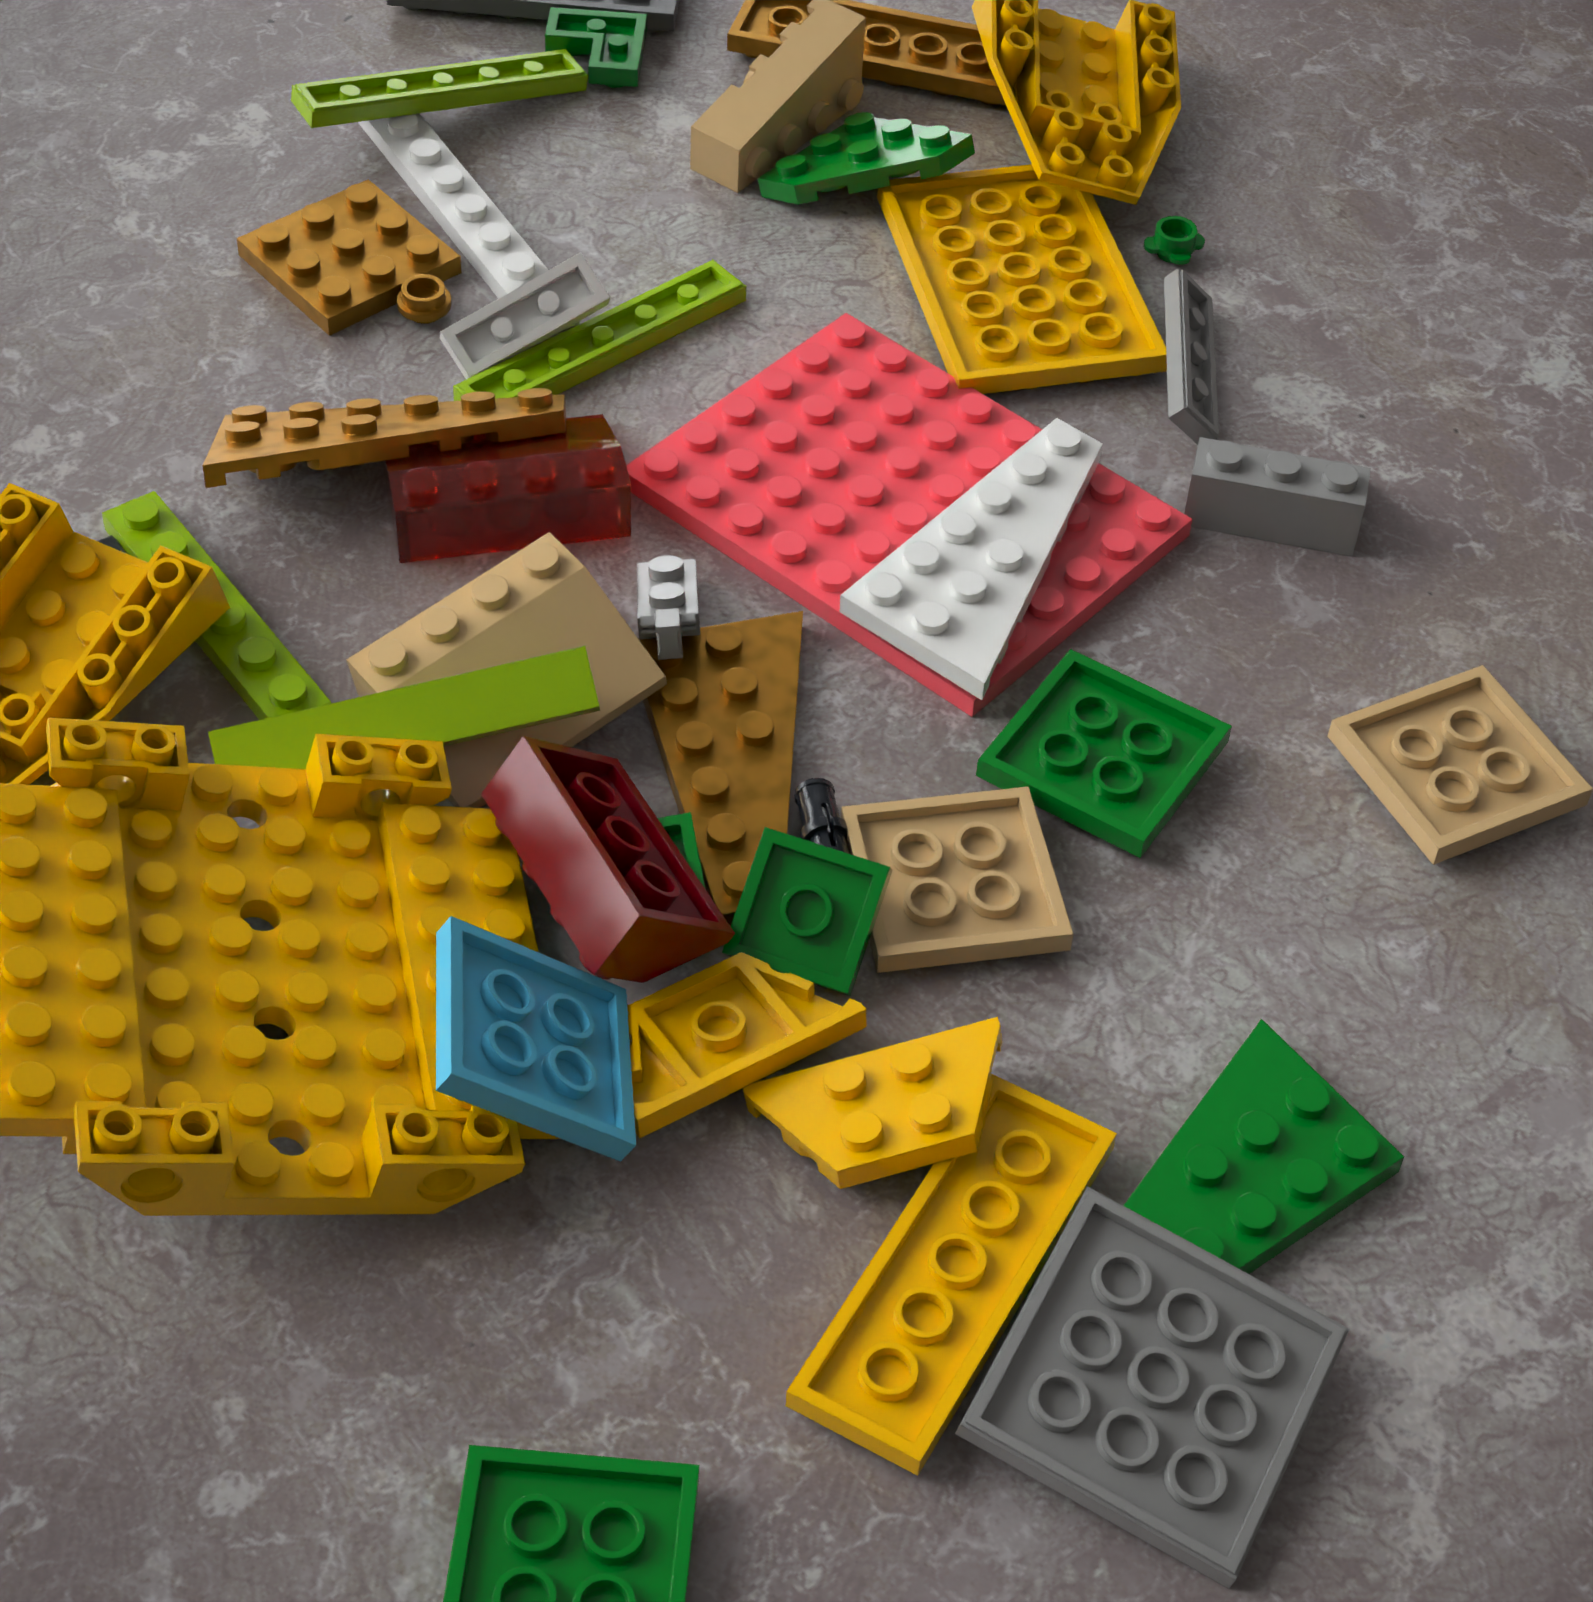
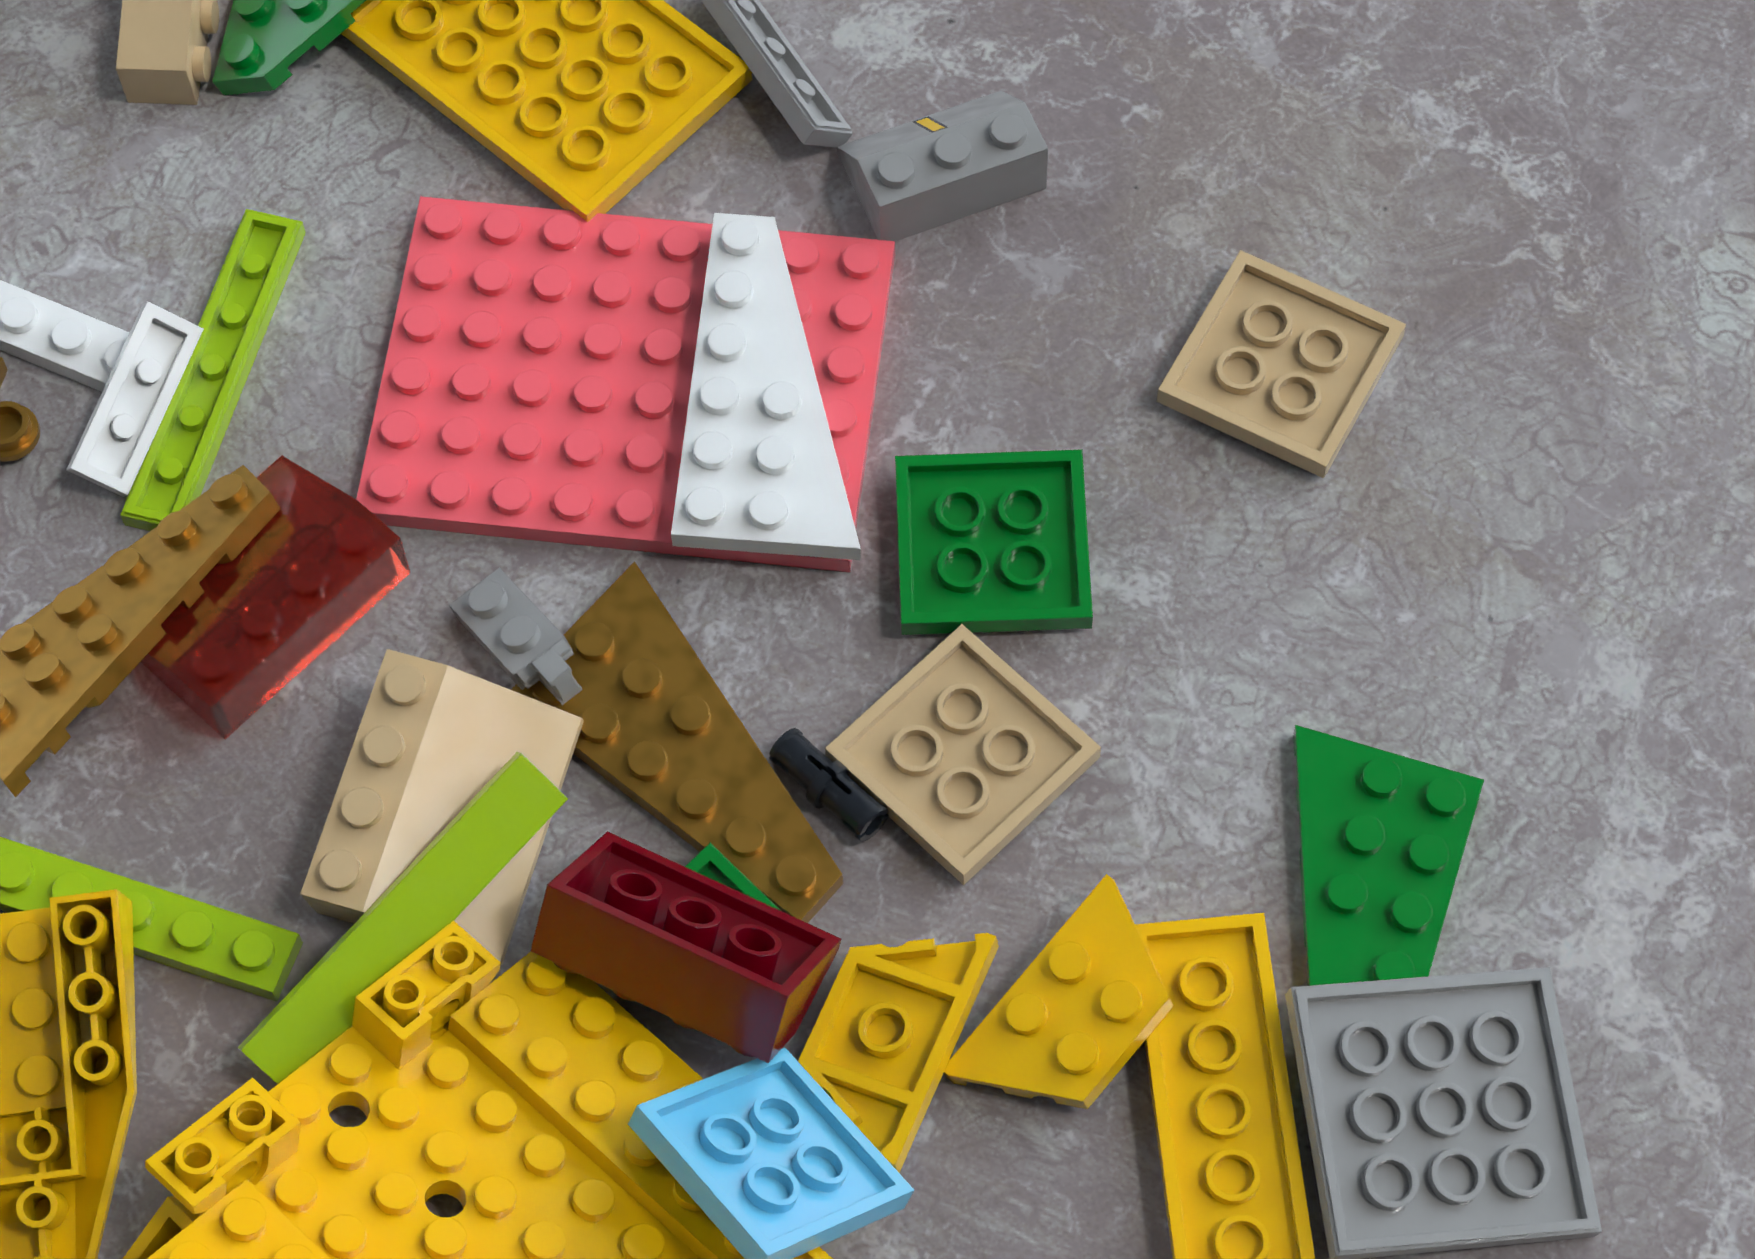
camera: 30 degrees left, 15 degrees up
(808, 910) = (880, 873): green plate -> none

